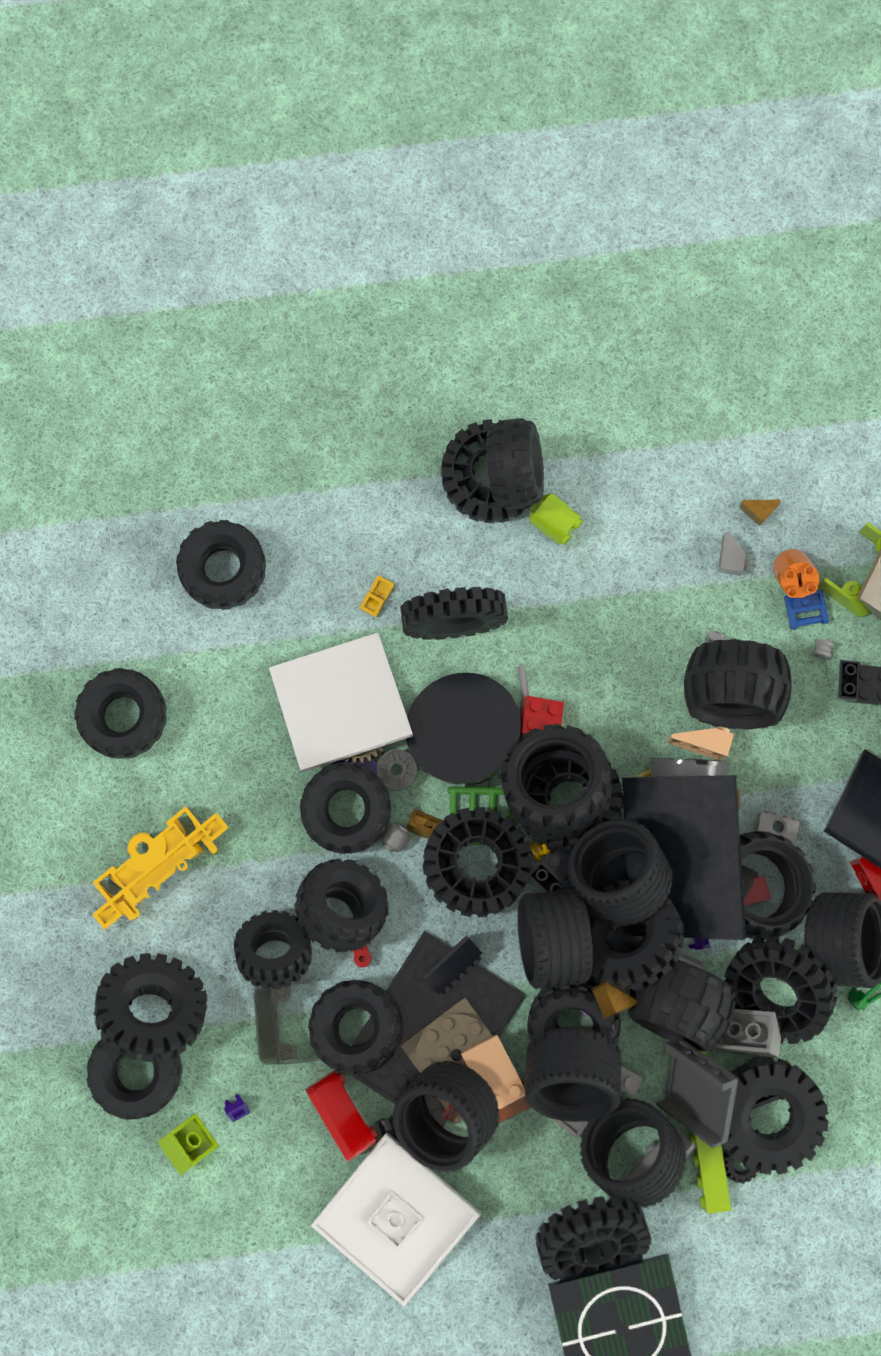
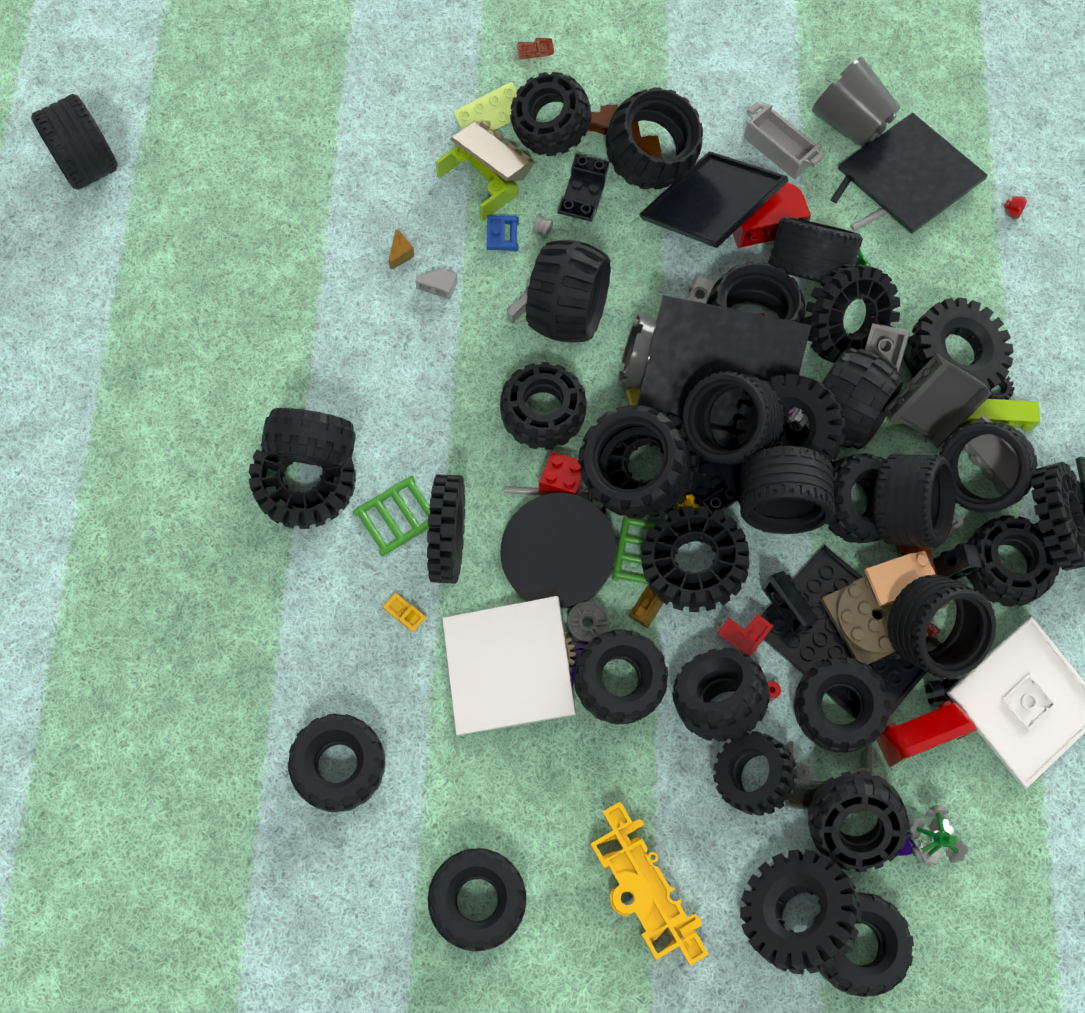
camera: 80 degrees left, 10 degrees down
(188, 1144) = (939, 901): lime slope -> none
(240, 1139) = (940, 832): none -> light grey plant
(263, 1048) = (852, 794): none -> black tyre
(395, 837) = (656, 633): light grey head -> none
(406, 924) = (746, 639): none -> red panel
(482, 547) = (377, 502): none -> bright green bar
(518, 1167) = (998, 582): none -> black tyre
(524, 1131) = (958, 561): none -> black brick
(554, 518) = (370, 424): lime cylinder -> none
(595, 708) = (536, 429): none -> black tyre
(611, 999) = (851, 450): pearl gold slope -> none
(708, 742) = (614, 332): light nougat slope -> none
(796, 163) = (75, 141): none -> black tyre
(796, 573) = (470, 229): orange cylinder -> none

